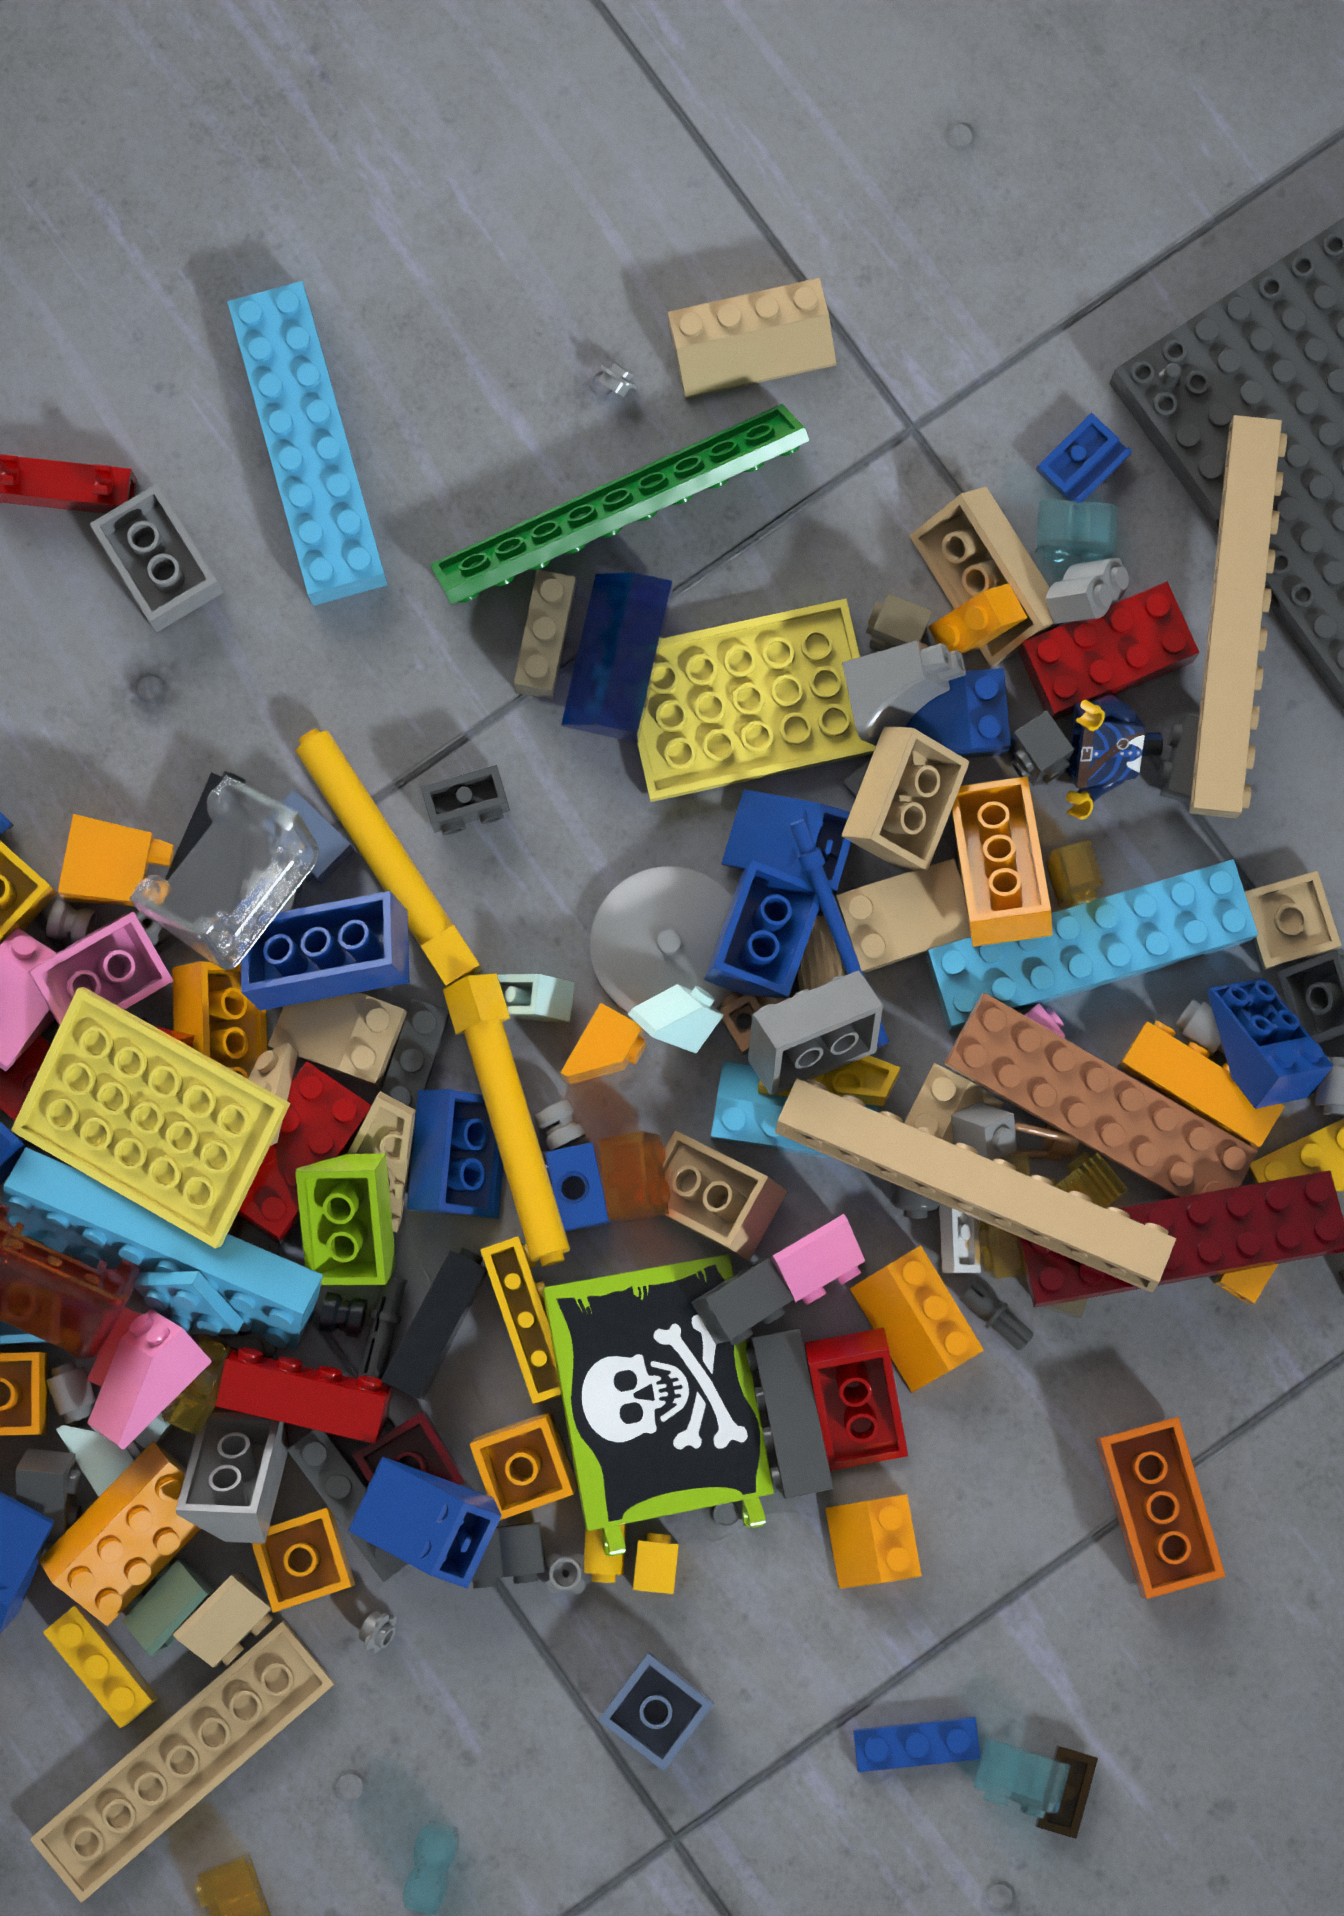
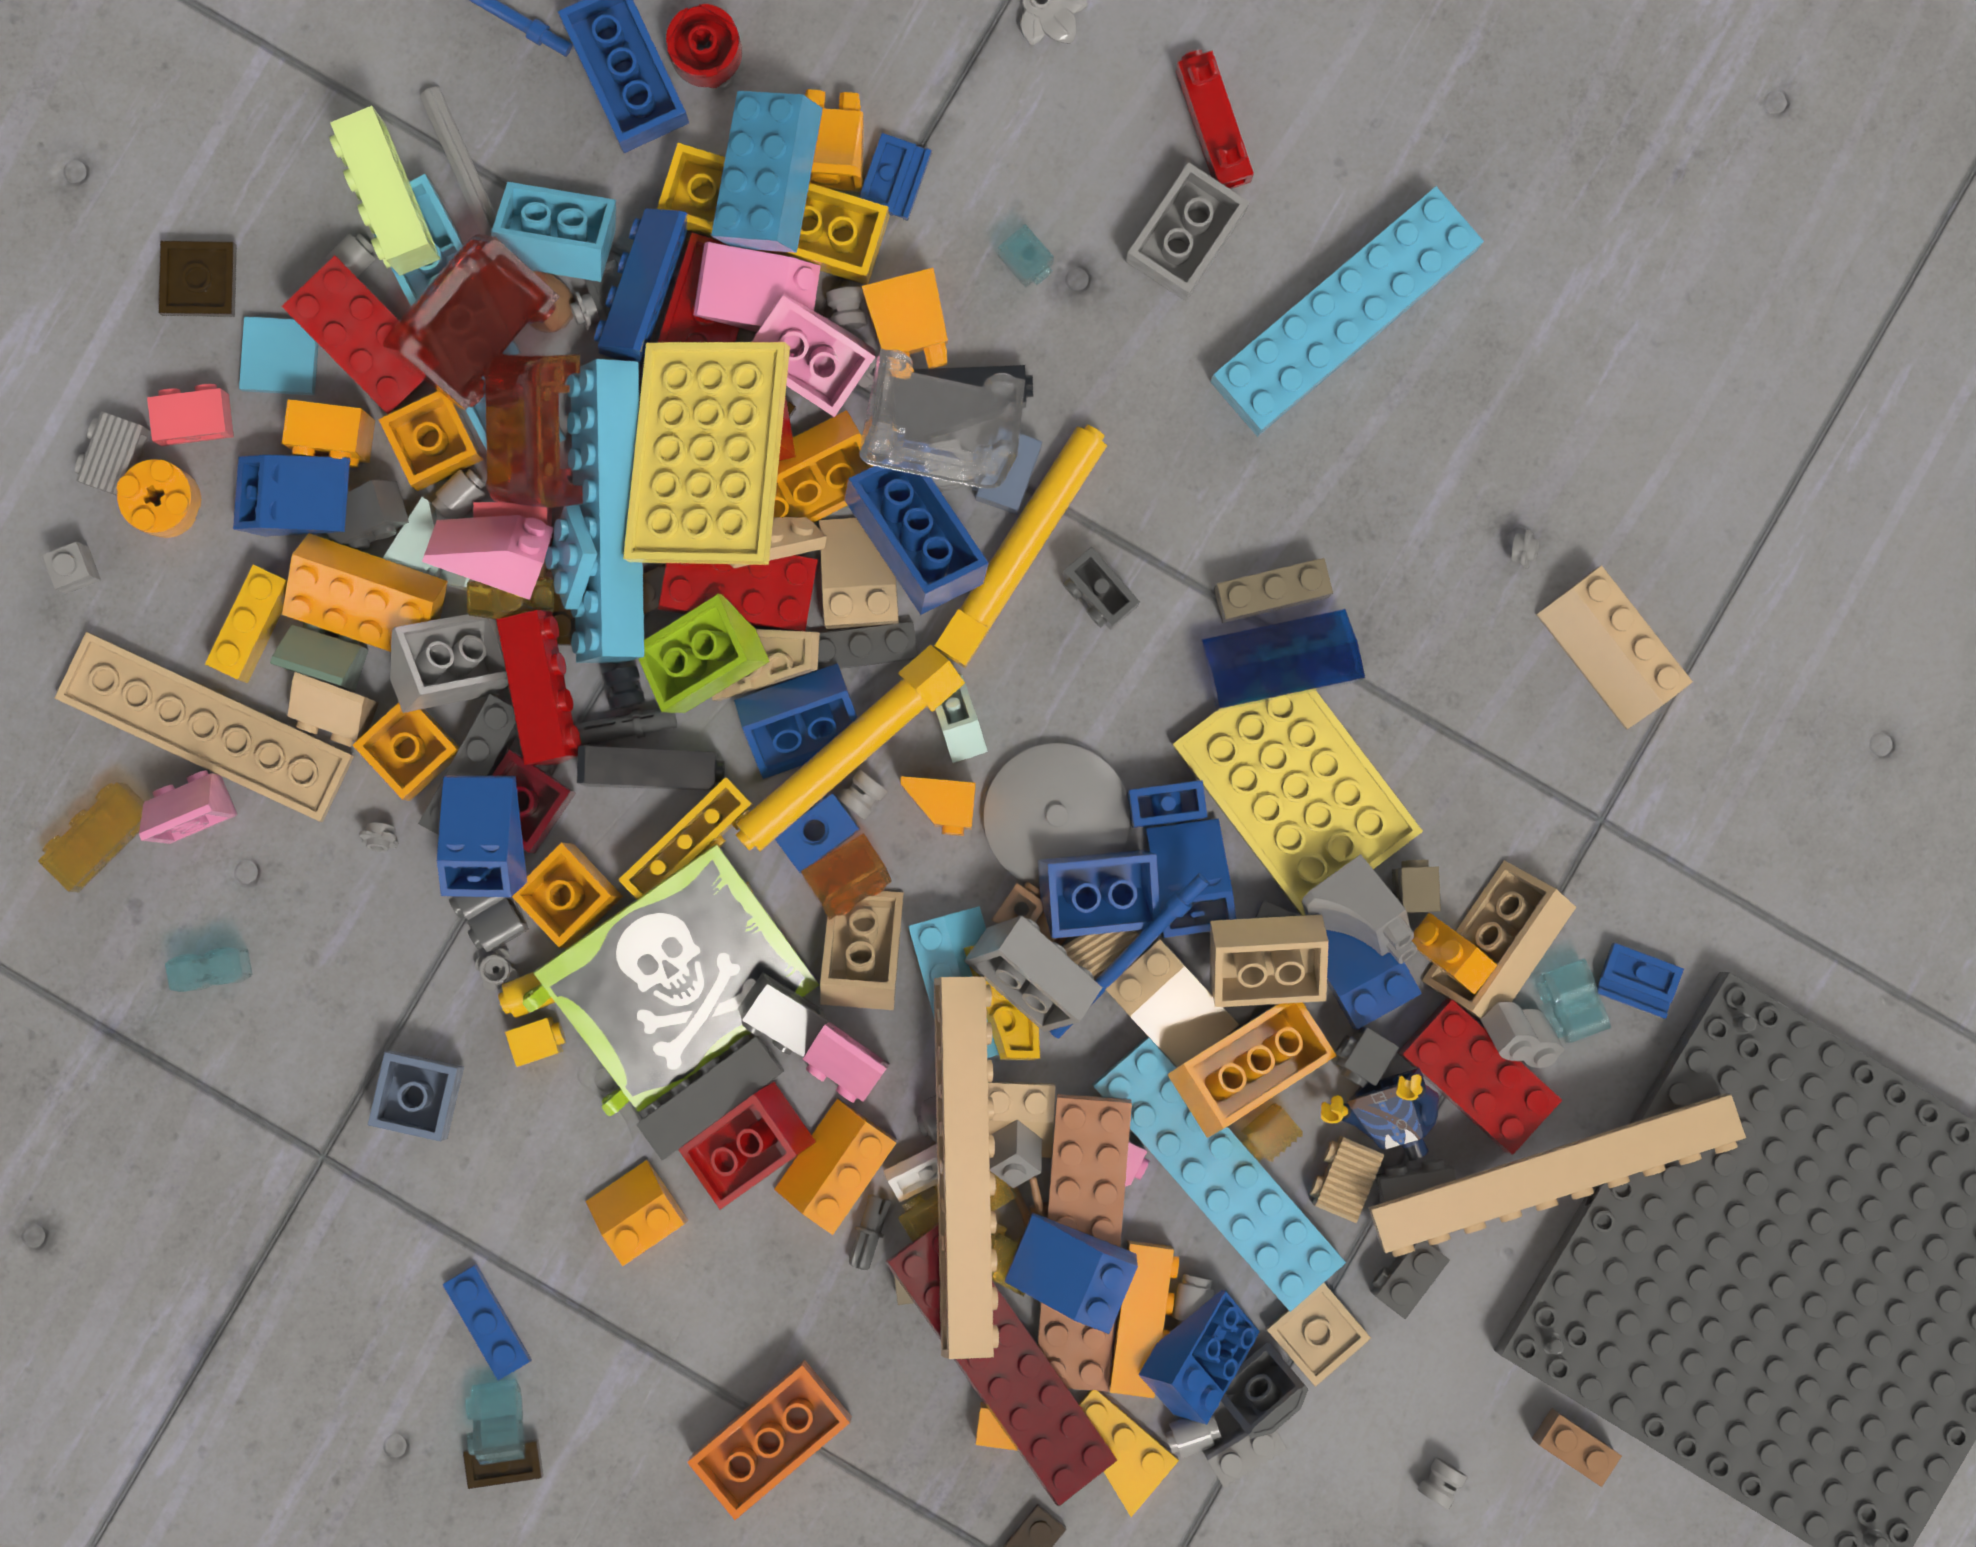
camera: 60 degrees right, 5 degrees up
(105, 724) = (1026, 257): none -> clear light blue brick
(257, 1815) = (186, 809): none -> bright pink slope
(618, 503) = (1415, 601): green plate -> none
(678, 1017) = (995, 853): light aqua slope -> none
(707, 830) = (1167, 804): none -> blue brick
(1126, 1127) = (1072, 1272): none -> blue slope
(1151, 824) = (1346, 1178): none -> tan brick
(1275, 807) = (1409, 1278): none -> dark grey brick

